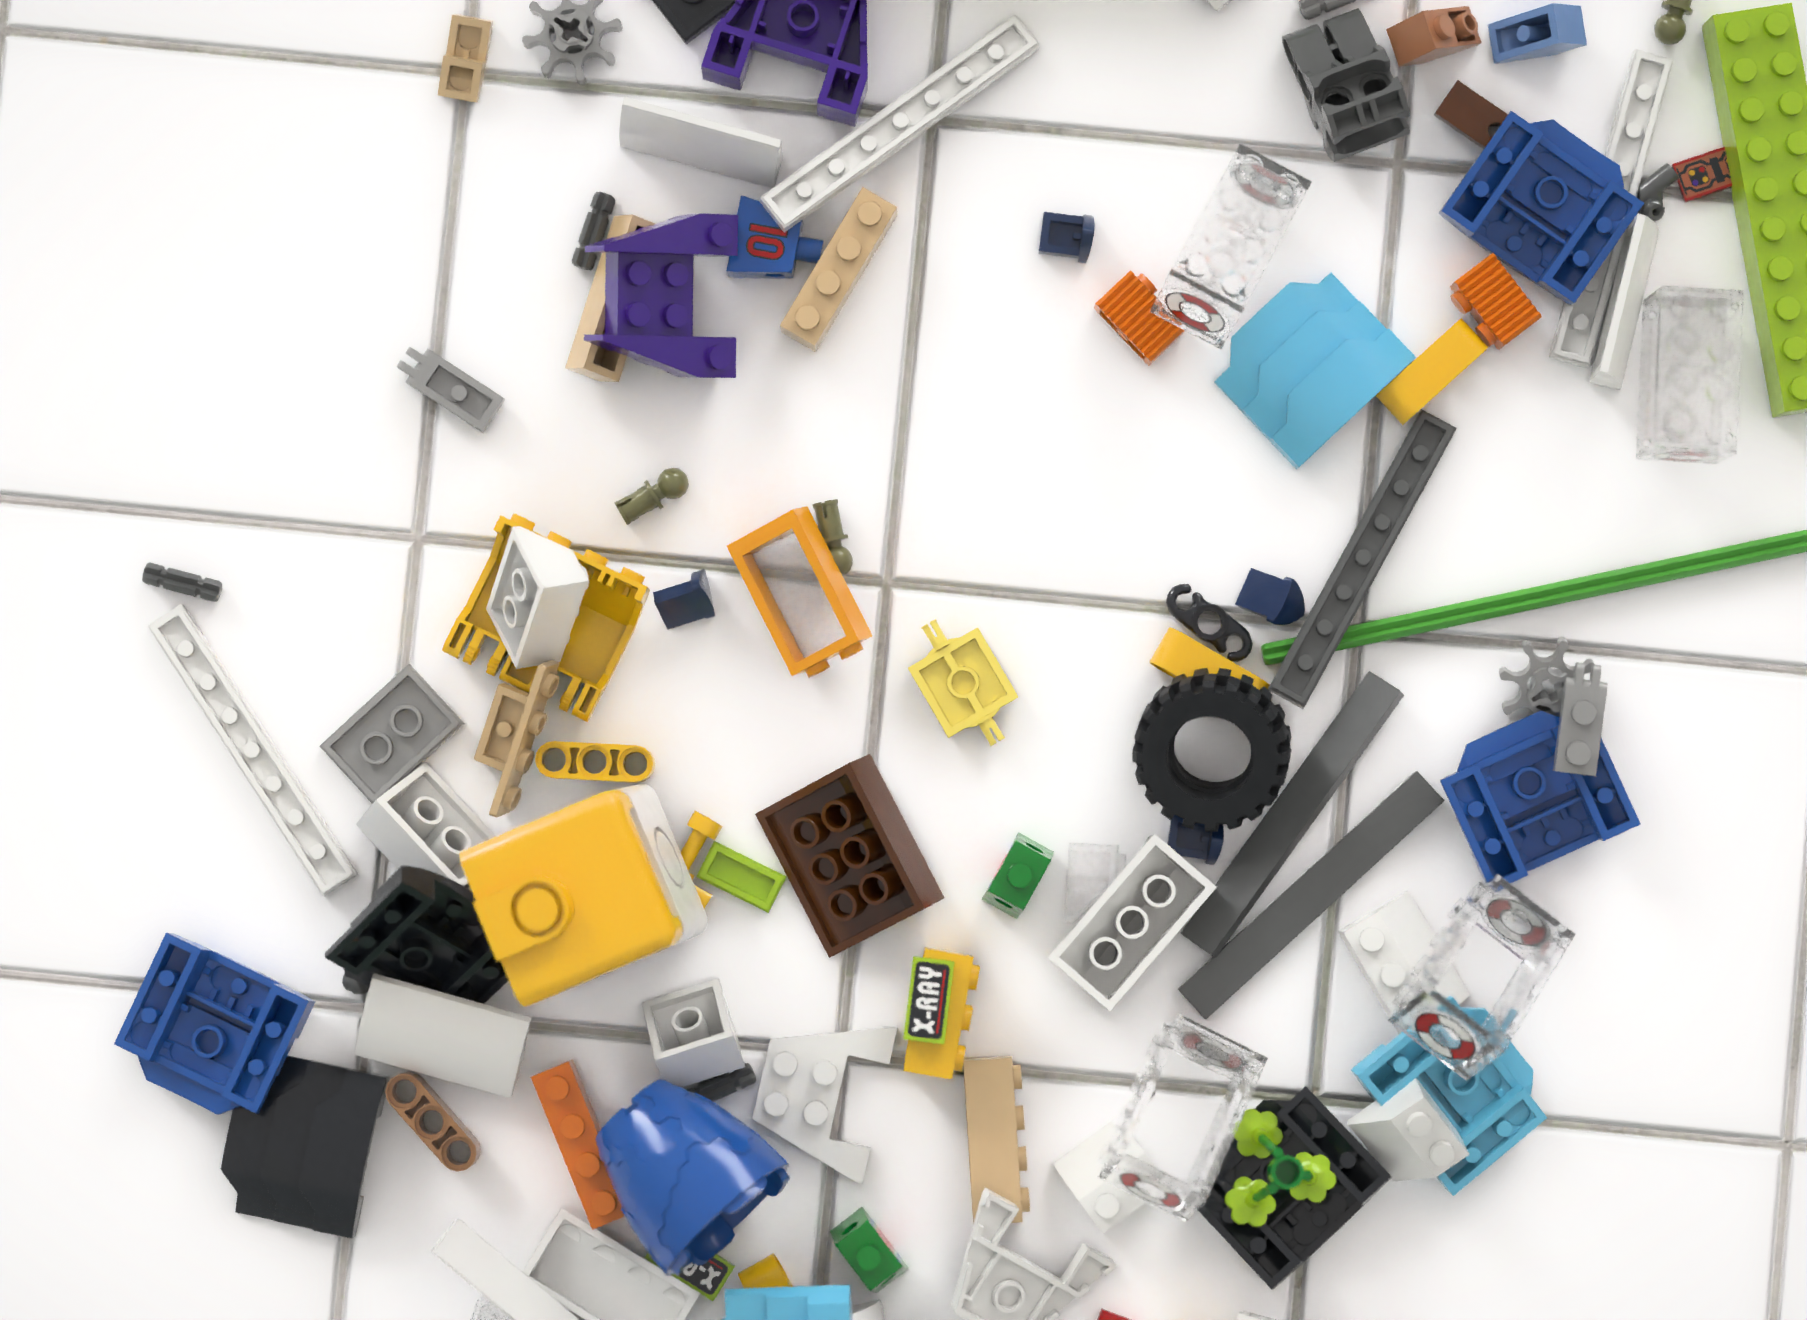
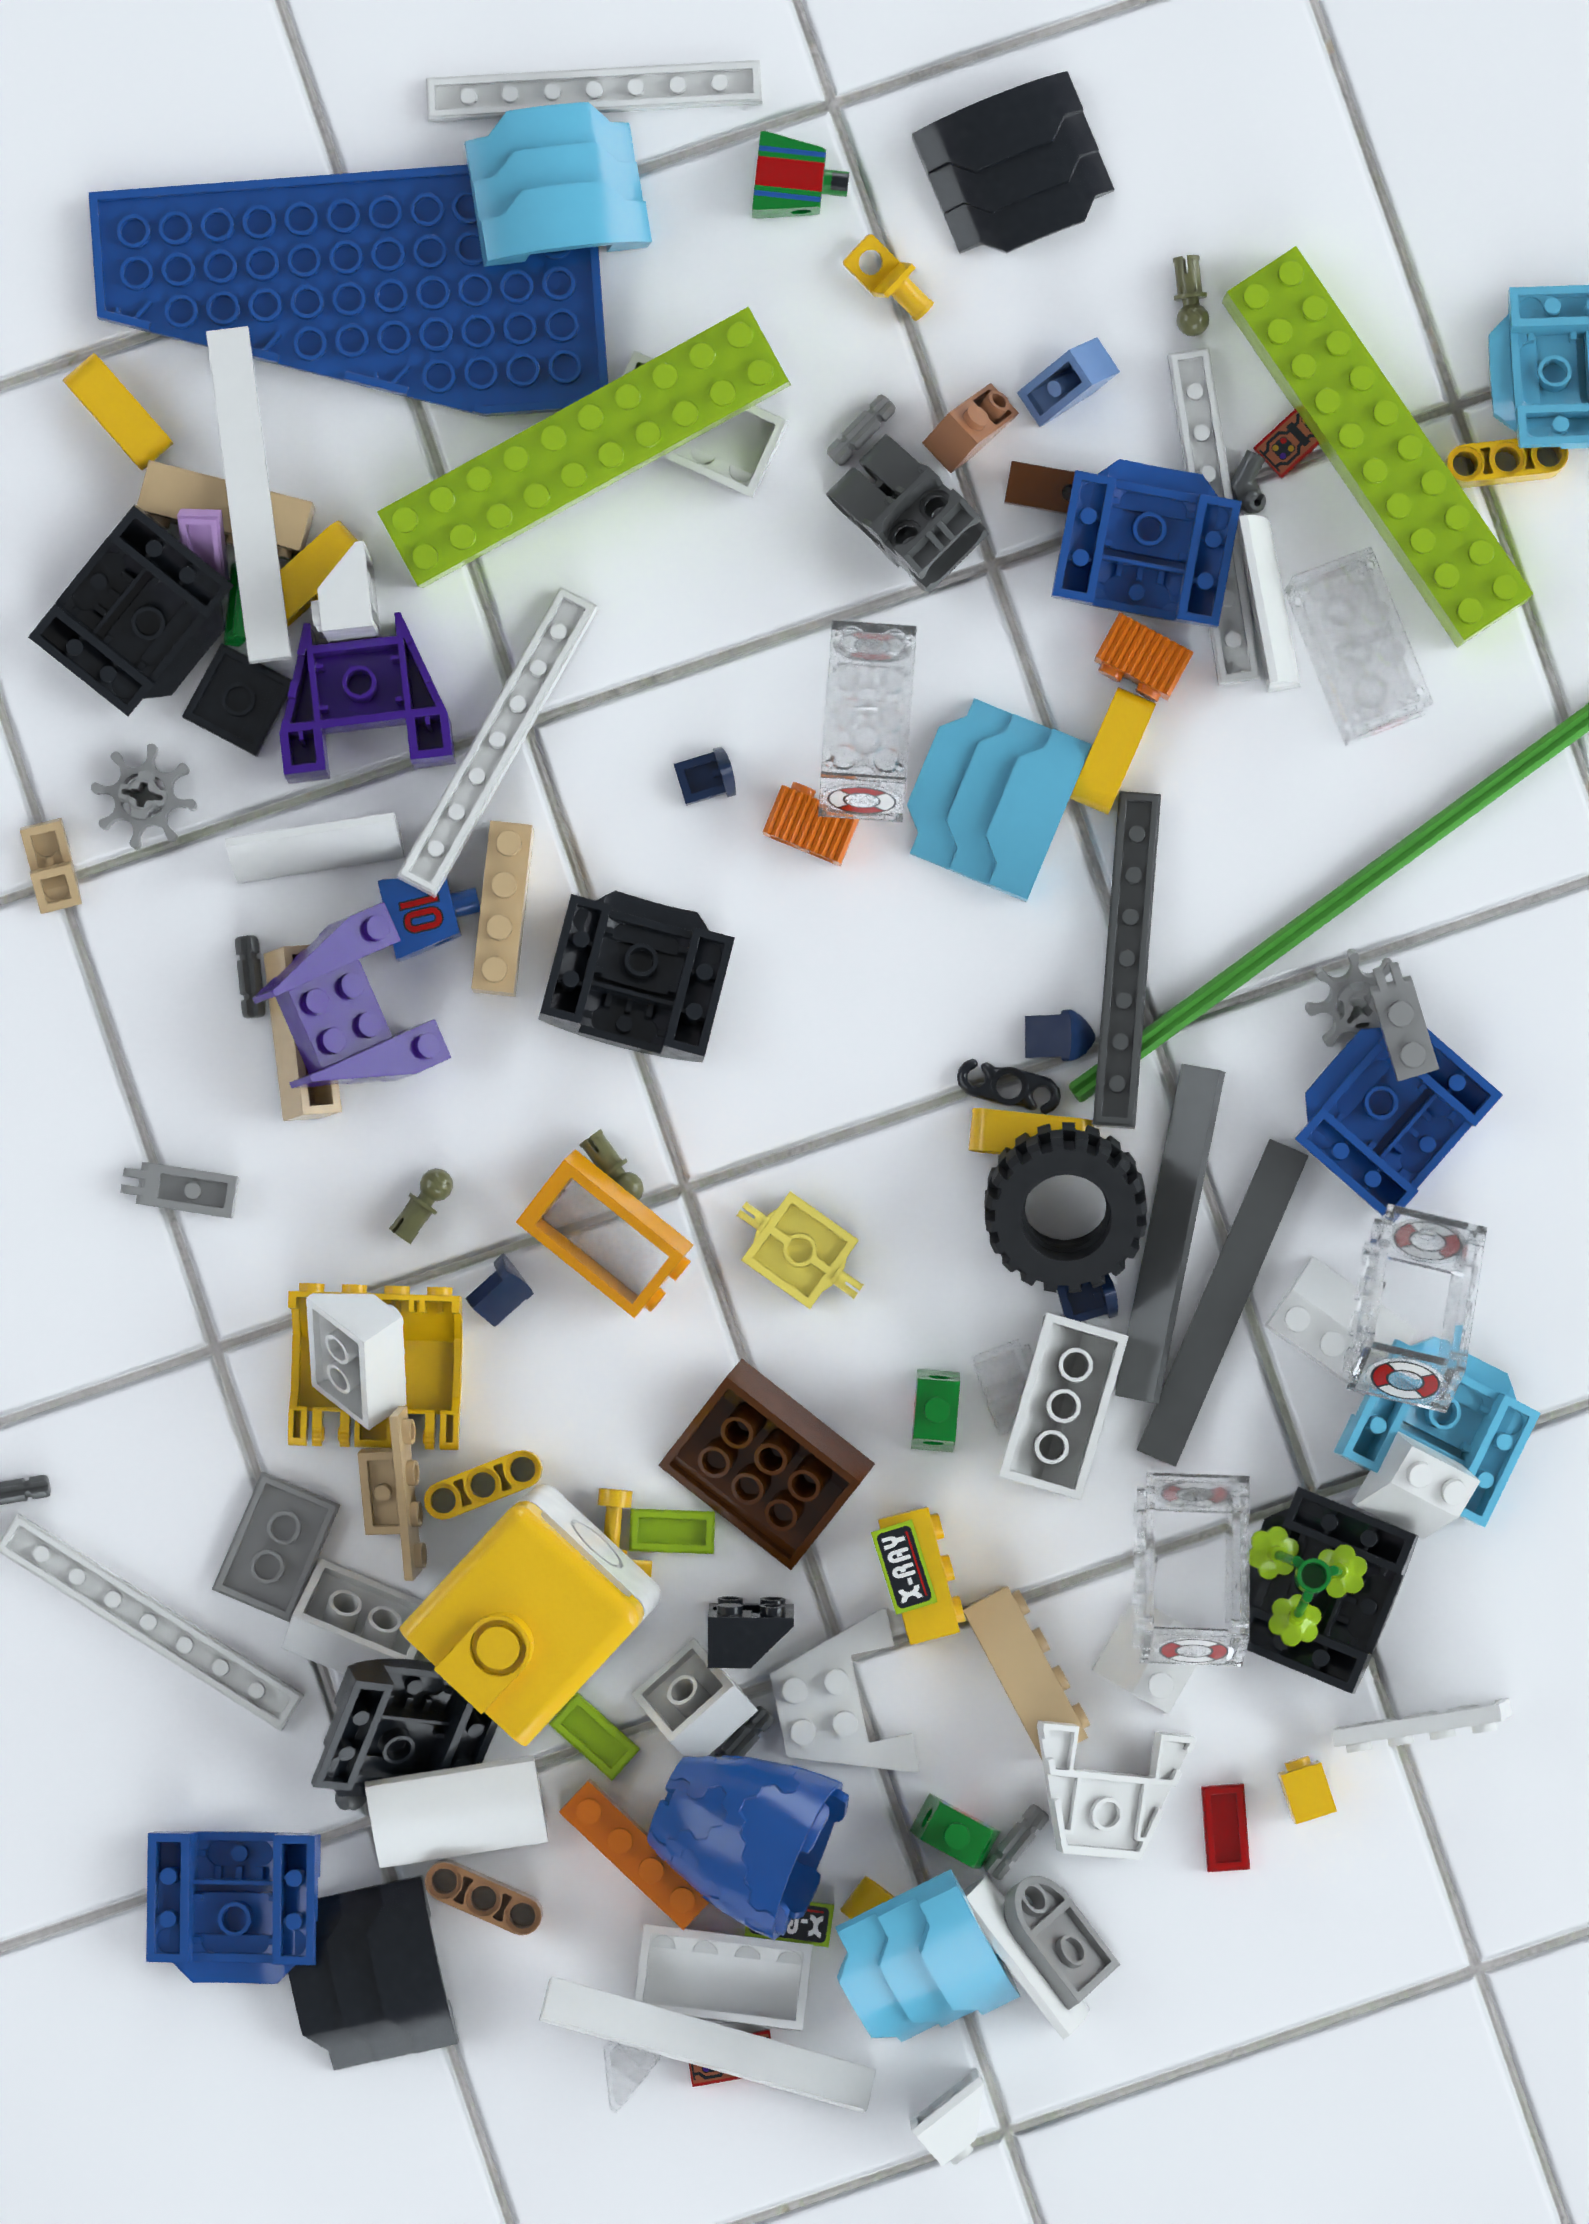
camera: 25 degrees left, 0 degrees up
(593, 1024) = (594, 1736): none -> lime tile
(764, 993) = (745, 1631): none -> black slope
(918, 1284) = (1016, 1842): none -> light grey axle
(928, 380) = (637, 976): none -> black slope

